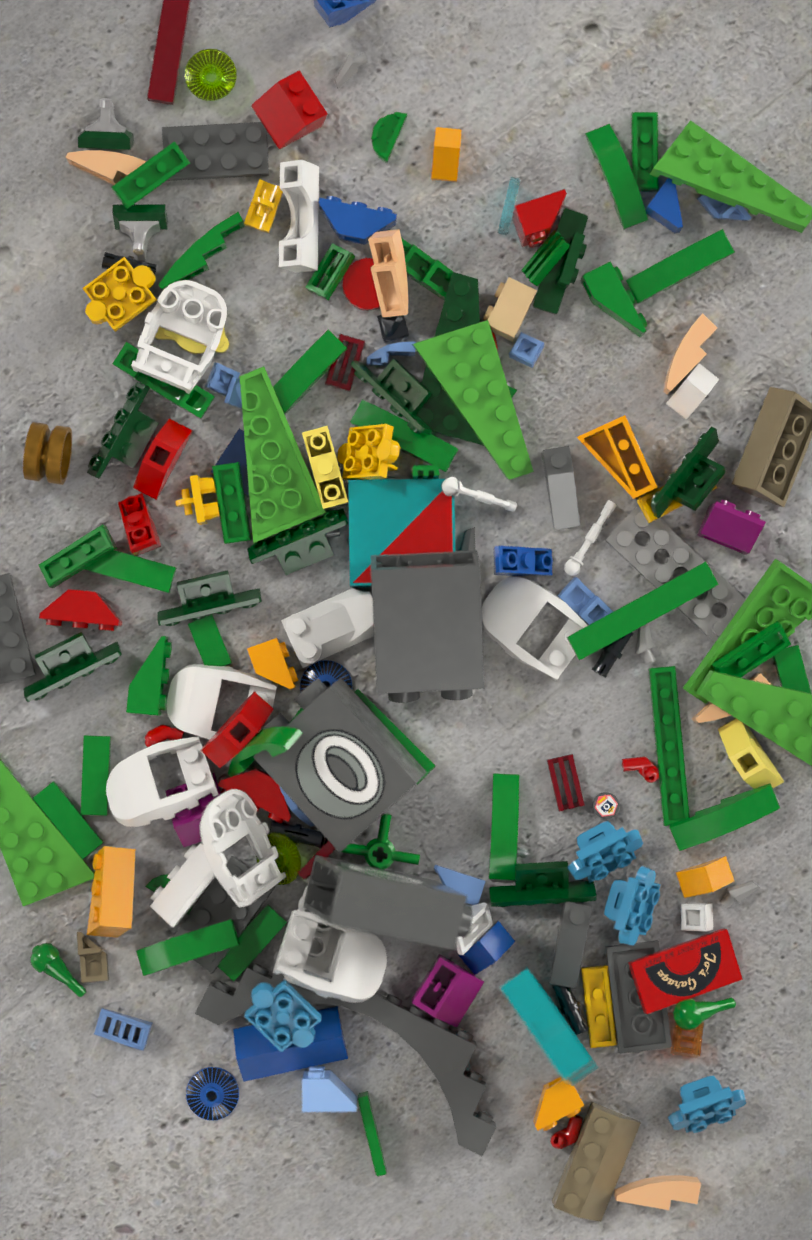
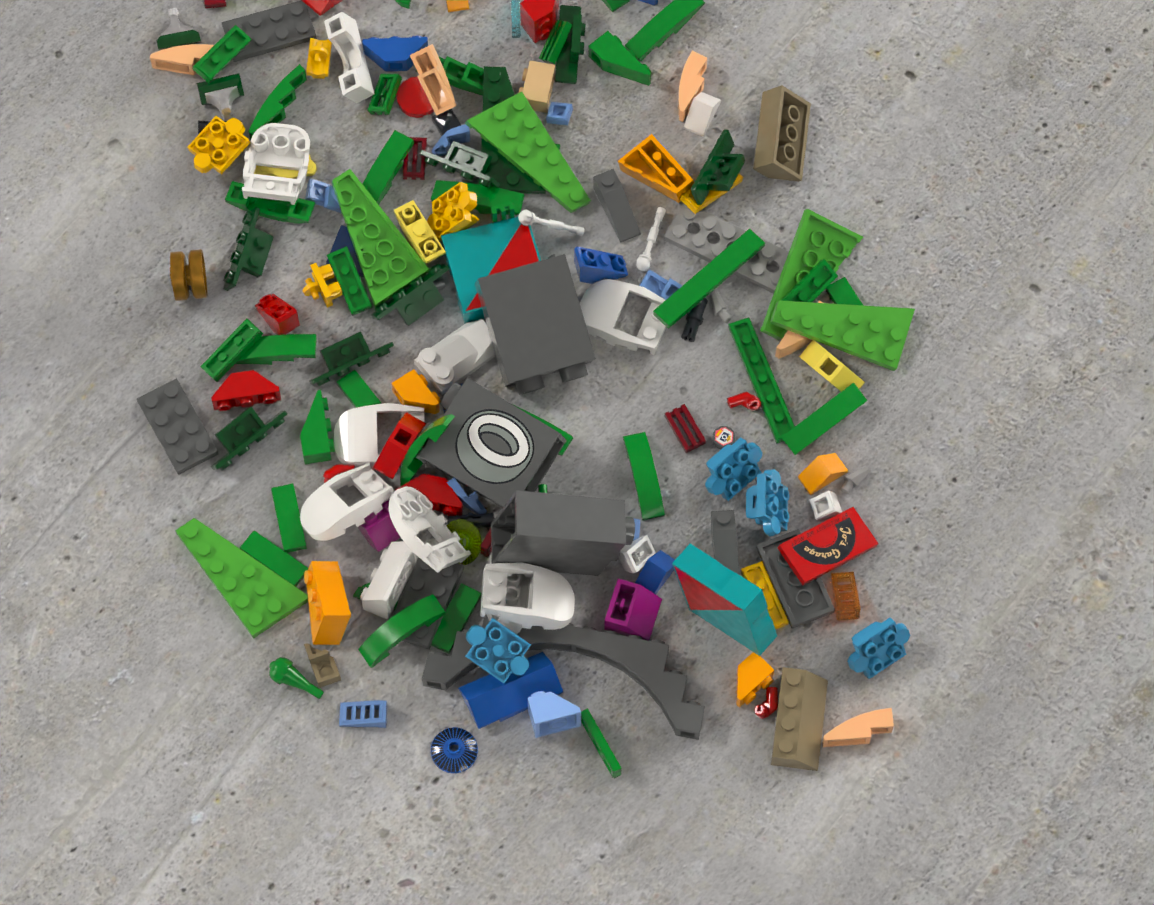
camera: 10 degrees left, 20 degrees down
(161, 458) = (282, 262): red slope -> none
(542, 885) = (687, 507): dark green bracket -> none
(690, 1013) = (841, 575): green piece -> none
(731, 527) = (762, 199): magenta slope -> none

